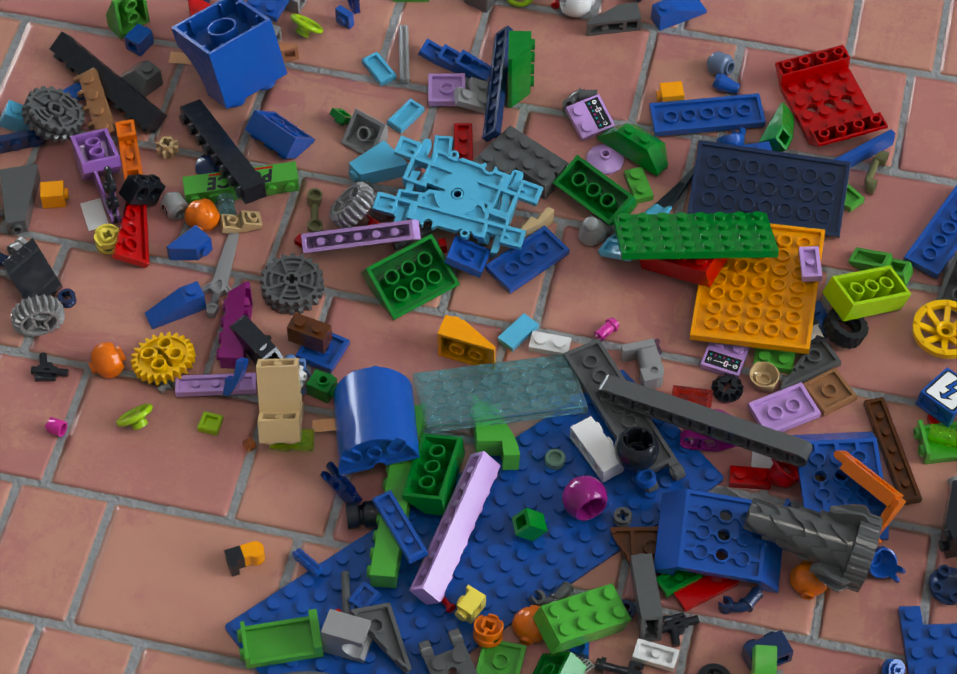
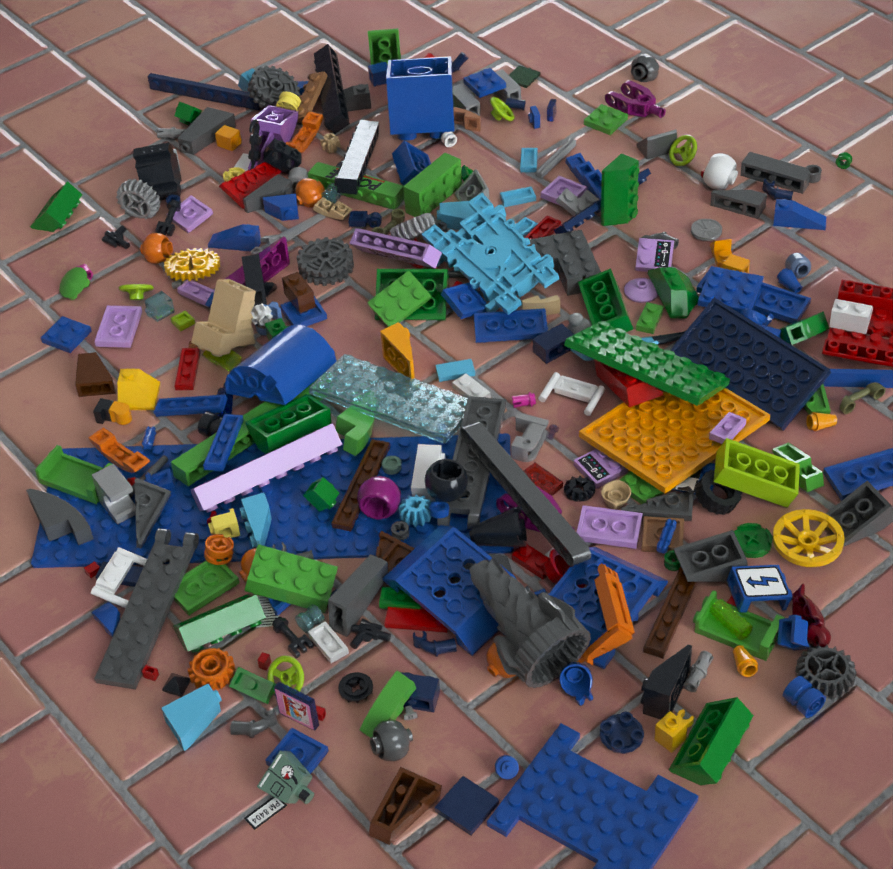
camera: 40 degrees right, 10 degrees down
(61, 444) = (73, 283): none -> bright green dish
(83, 303) = (166, 227): none -> black hinge
(89, 122) = (288, 101): none -> light yellow wheel
(99, 303) = (191, 214): none -> lavender plate
(106, 503) = (66, 334): none -> blue plate
(154, 465) = (118, 326): none -> lavender plate
(164, 232) = (274, 187): none -> dark grey slope
(175, 421) = (159, 306): none -> clear light blue brick
(186, 531) = (92, 376): none -> reddish brown slope
(244, 521) = (137, 389): none -> yellow slope
(267, 471) = (187, 369): none -> red tile
(280, 219) = (360, 218): none -> dark blue plate
(282, 84) = (448, 143): none -> white bush
(299, 595) = (117, 453): none -> orange slope
(310, 9) = (515, 103): none -> dark blue pin
(315, 507) = (190, 405): none -> blue tile
(325, 147) = (433, 185): none -> bright green brick
(409, 289) = (399, 299): none -> bright green plate
(492, 580) = (258, 516): none -> medium azure slope
(547, 494) = (368, 467): none -> reddish brown tile
(583, 257) = (551, 343): none -> dark blue brick
(608, 65) = (706, 229): none -> light grey wheel
(621, 490) = (415, 510): none -> medium azure gear
(621, 643) = (310, 618): none -> clear light blue wheel
(642, 83) = (721, 250): none -> light orange slope
(642, 293) = (574, 389): none -> white plate
(689, 120) = (732, 288): none -> blue plate
(712, 466) = (501, 530): none -> black cone
(811, 95) = (850, 316): none -> white slope
(838, 392) = (666, 536): none -> blue axle
(857, 405) = (672, 566): none -> green bush
(862, 213) = (819, 421): none -> light orange cone
(893, 391) = (711, 558): none -> dark grey slope
(900, 356) = (754, 540): none -> green tile

